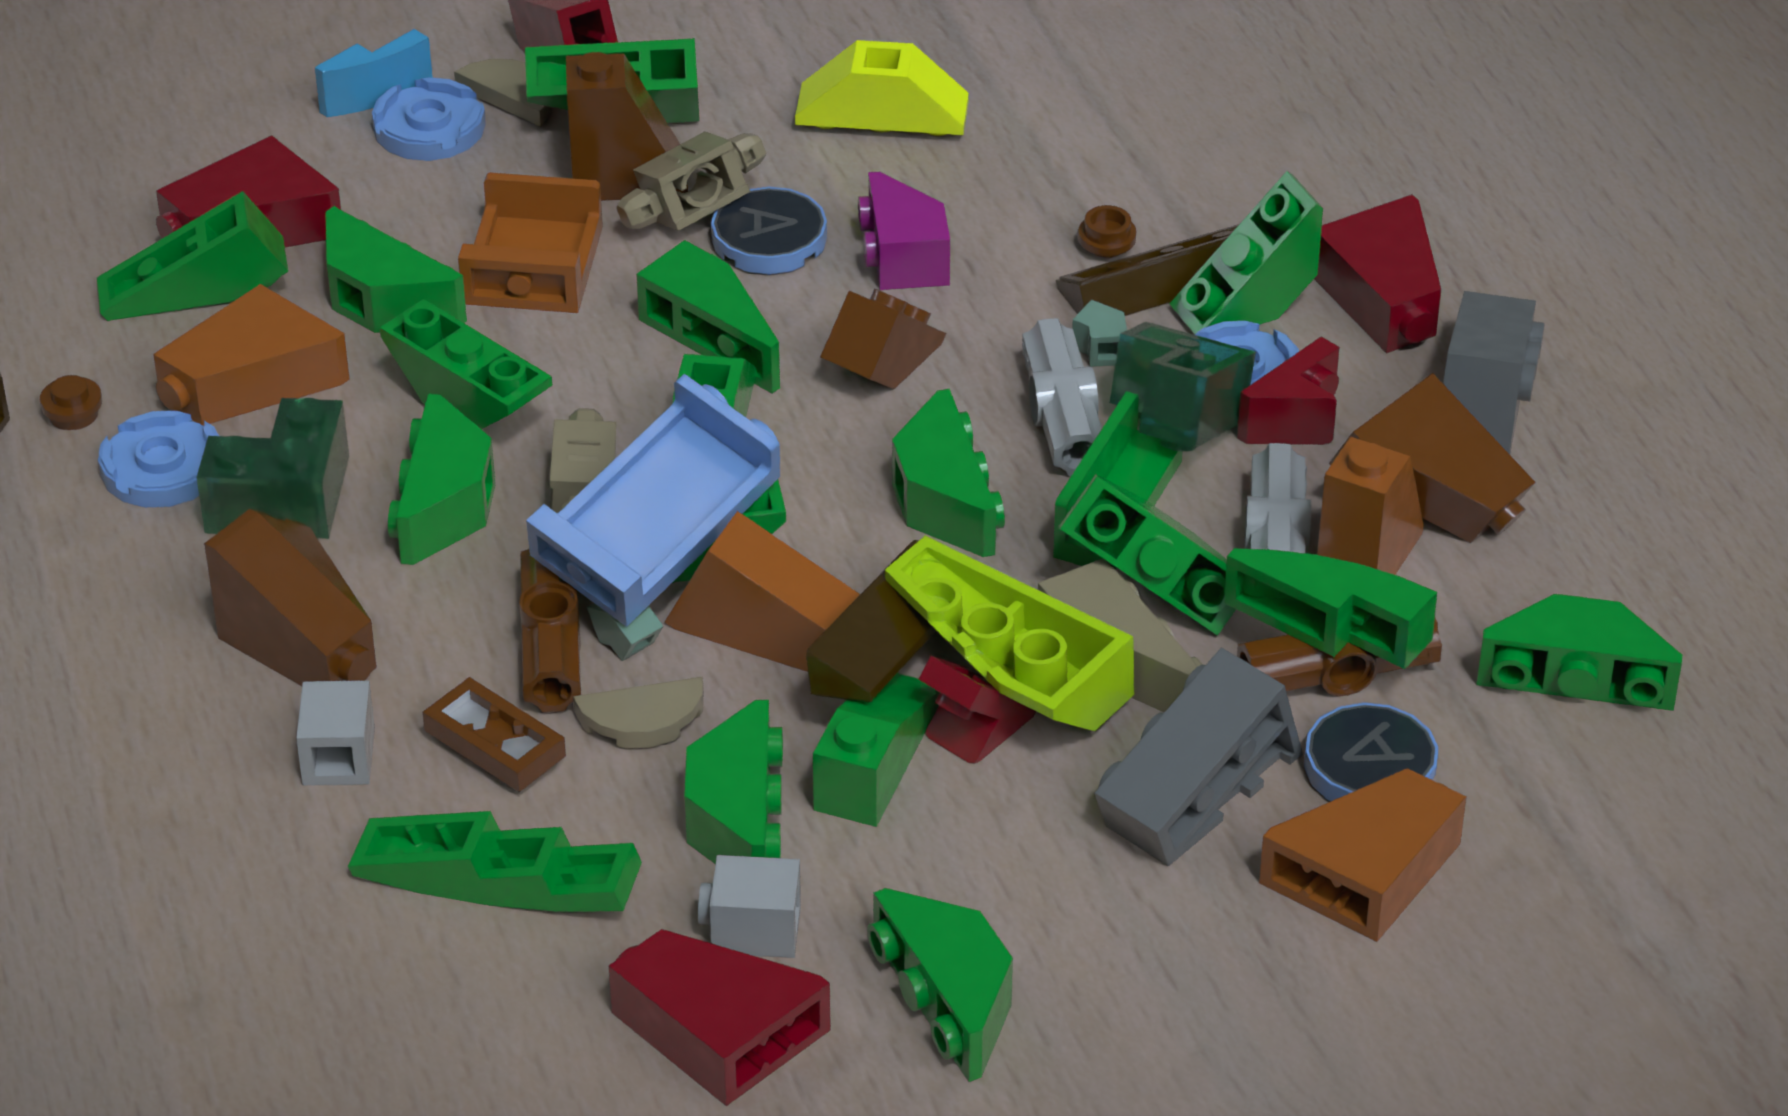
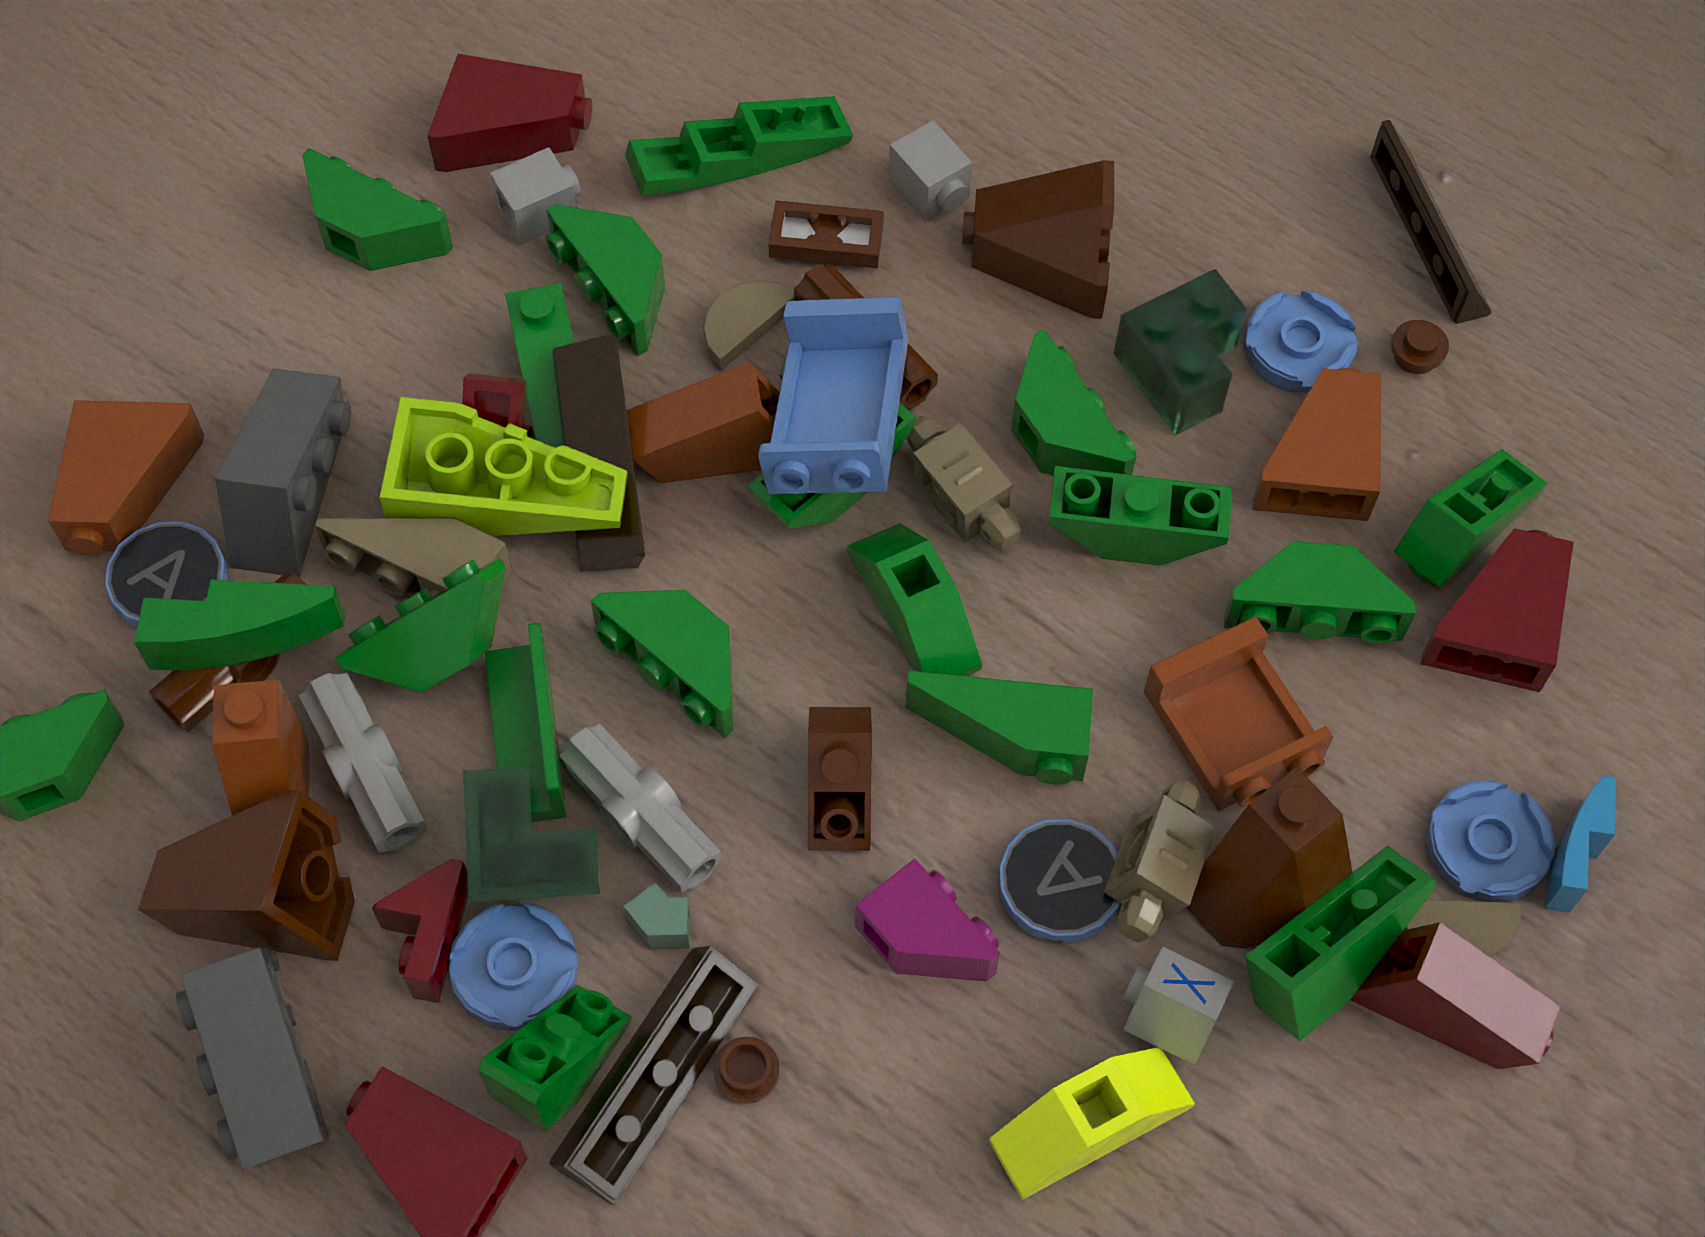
camera: 145 degrees right, 20 degrees up
(764, 109) = (1175, 1004): none -> light grey brick

